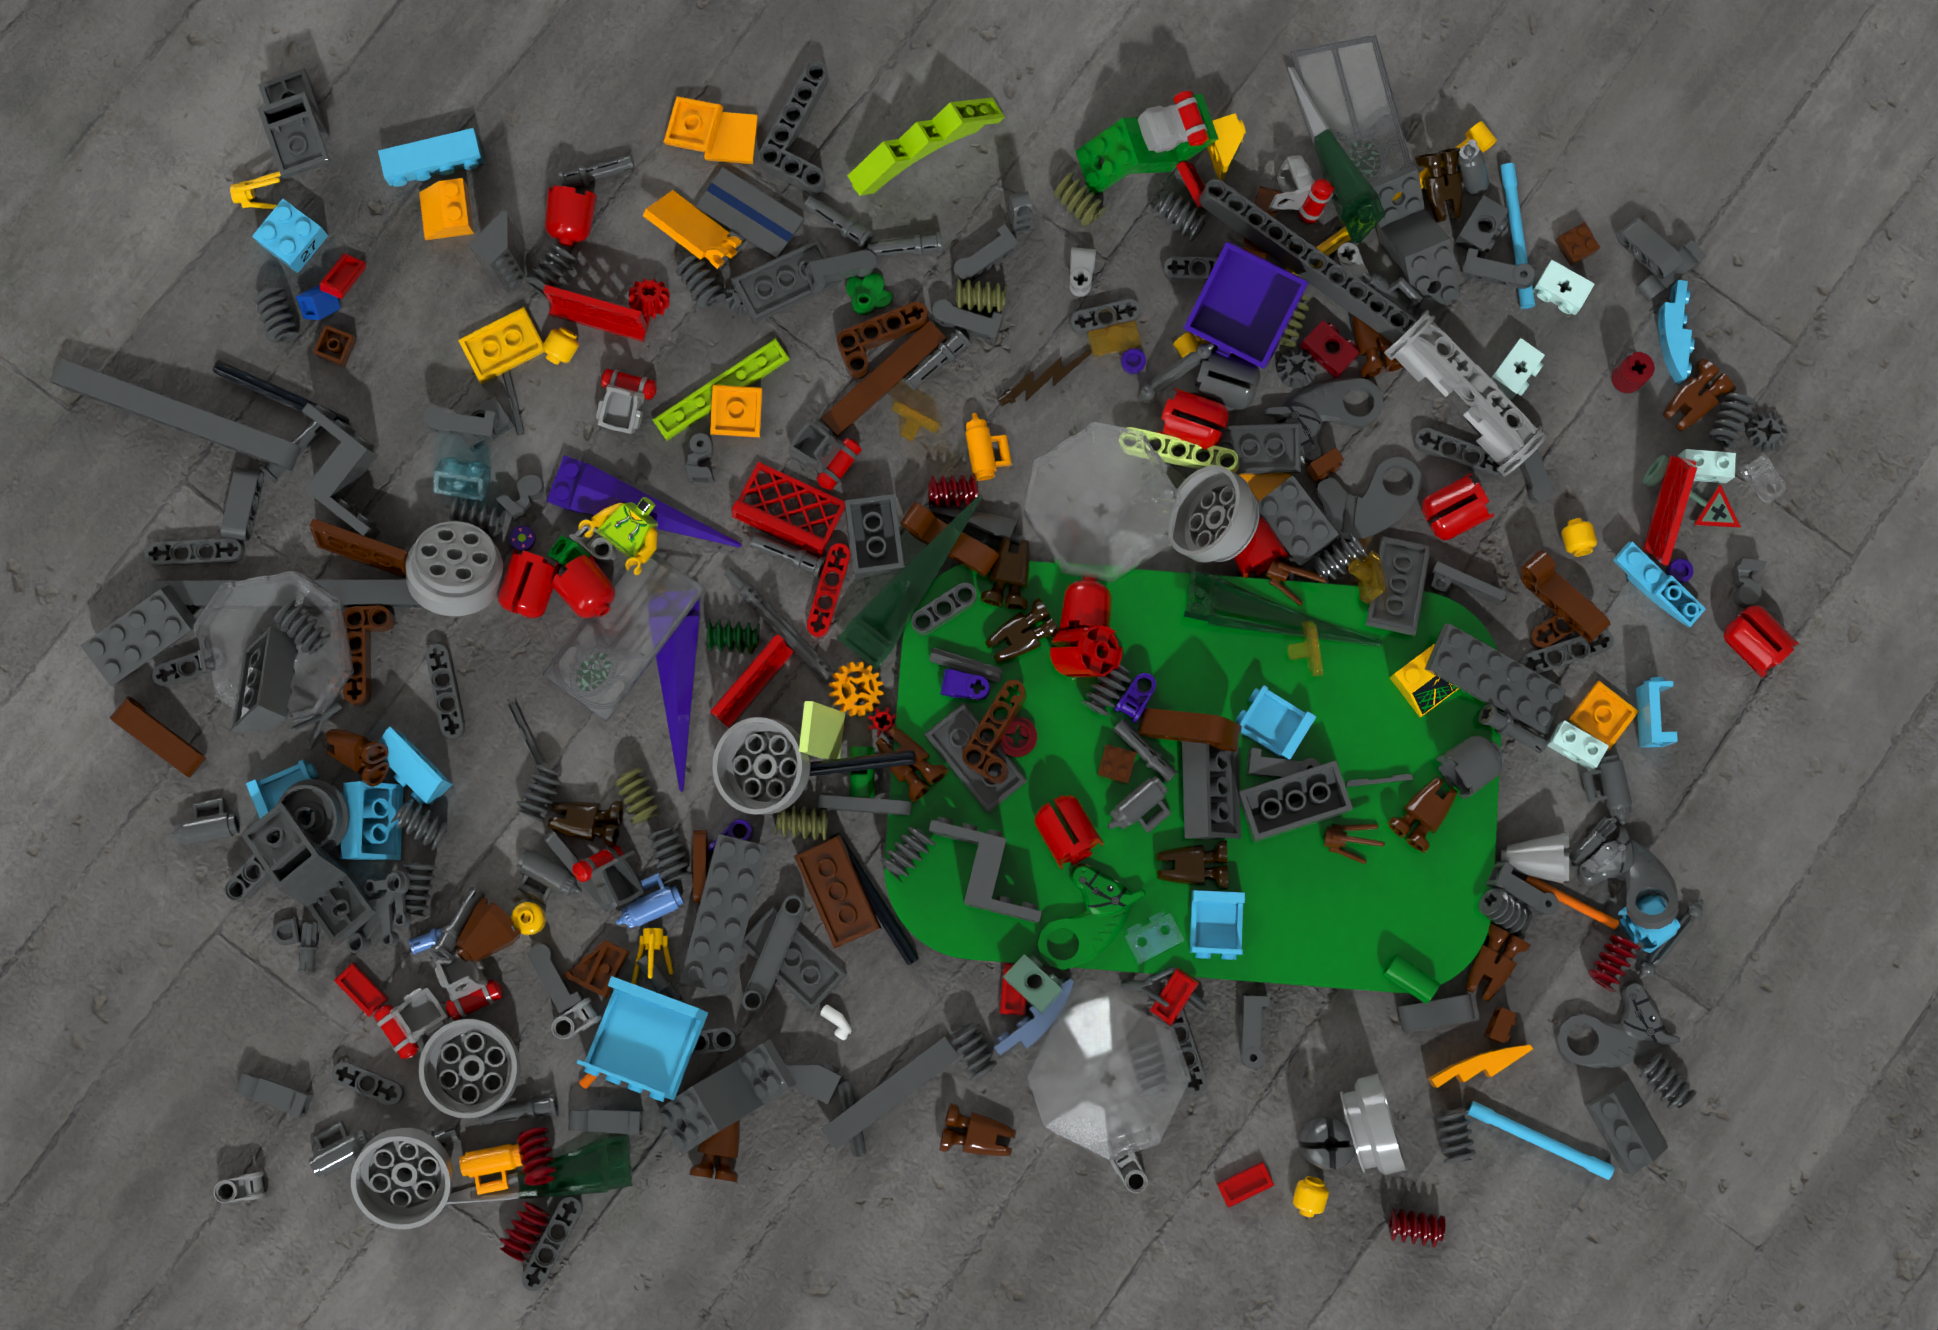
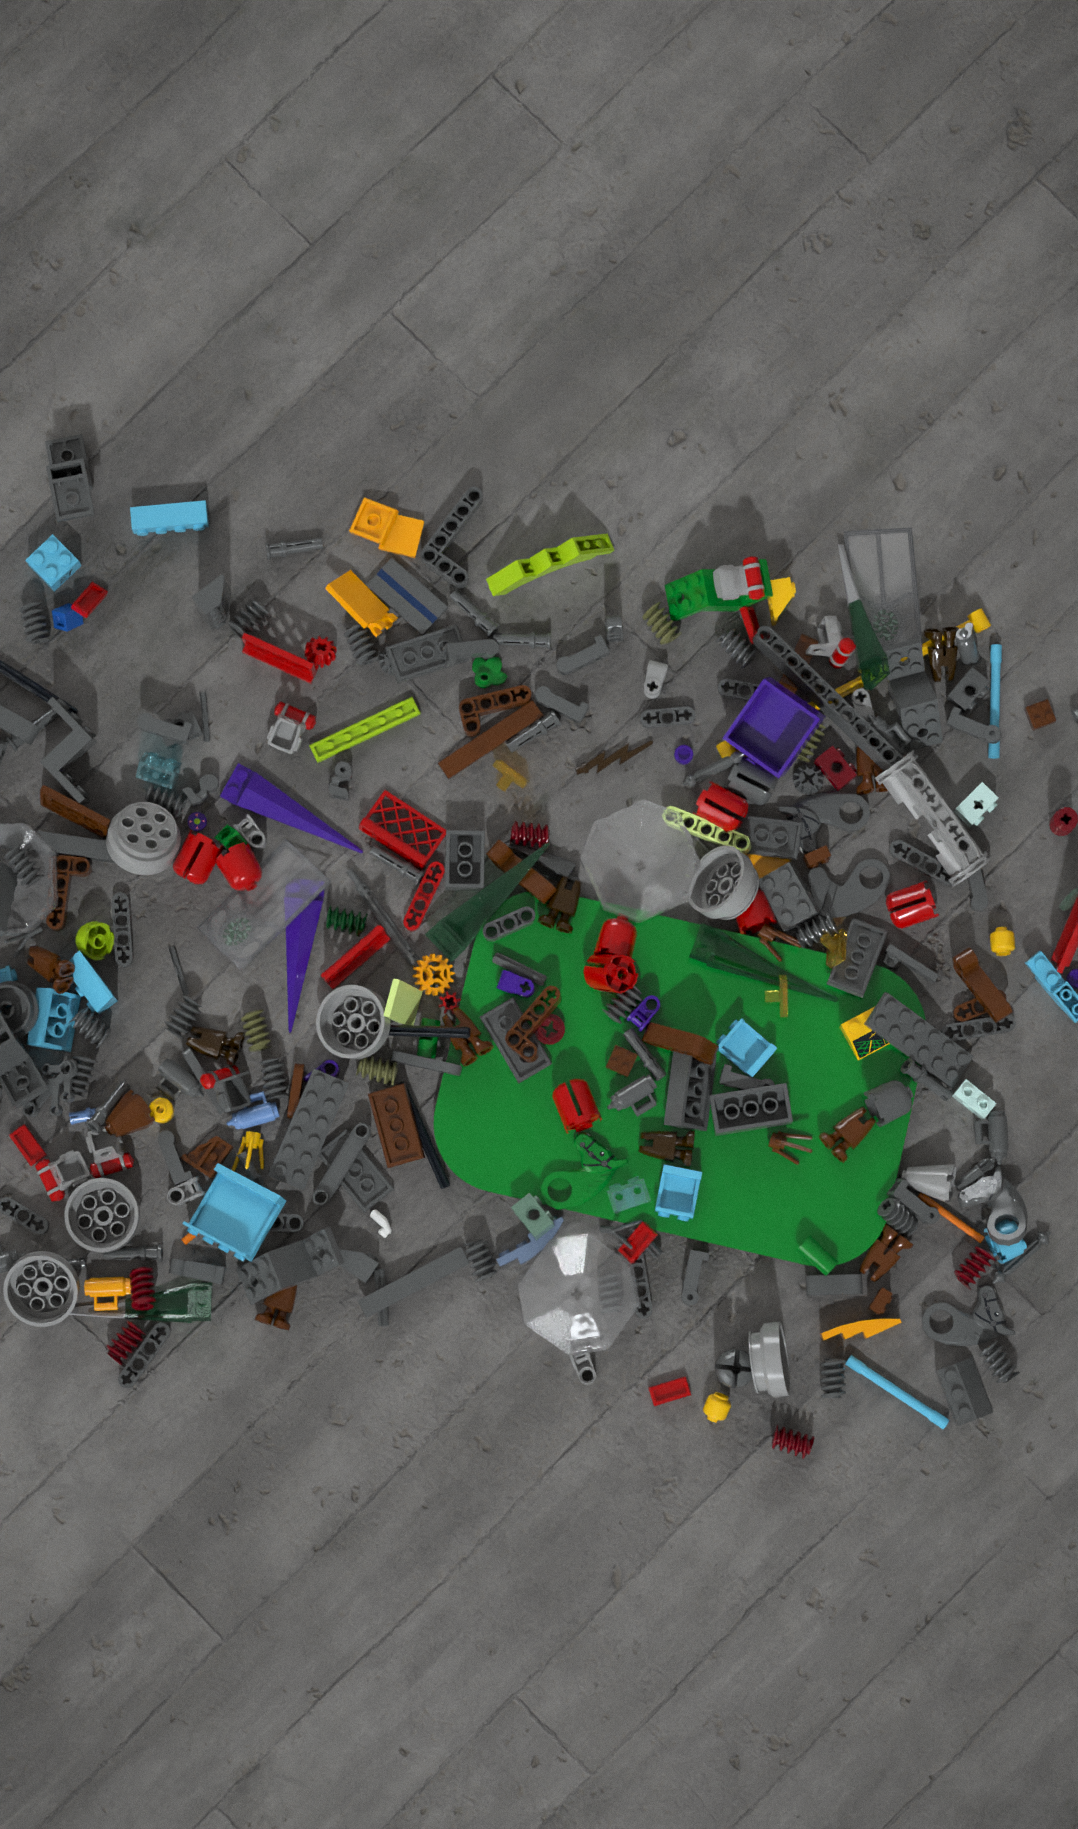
camera: 10 degrees right, 0 degrees up
(244, 191) = (22, 523): yellow plant -> none
(334, 345) = (75, 652): reddish brown piece -> none
(410, 710) = (94, 940): none -> lime cylinder
(446, 209) = (175, 560): light orange slope -> none
(502, 345) = (203, 670): yellow tile -> none
(560, 345) = (247, 678): yellow head -> none
(569, 214) = (268, 578): red cylinder -> none
(628, 529) = (279, 828): torso -> none
(736, 411) = (374, 748): light orange tile -> none
(825, 453) = (436, 790): dark grey piece -> none
(907, 852) = (453, 1103): dark grey piece -> none
(980, 1133) = (476, 1322): reddish brown piece -> none
(981, 296) = (574, 688): olive piece -> none
(981, 449) = (557, 806): light orange piece -> none
(984, 869) = (509, 1125): dark grey bracket -> none
(1011, 1000) = (515, 1227): red tile -> none
(1020, 635) = (563, 951): dark brown piece -> none
(1114, 339) = (671, 735): clear yellow tile -> none
(1396, 778) = (808, 1103): dark grey piece -> none
(1575, 291) = (1015, 740): light aqua brick -> none
(1603, 714) = (998, 1080): light orange tile -> none
(1649, 714) = (1030, 1101): medium azure panel -> none

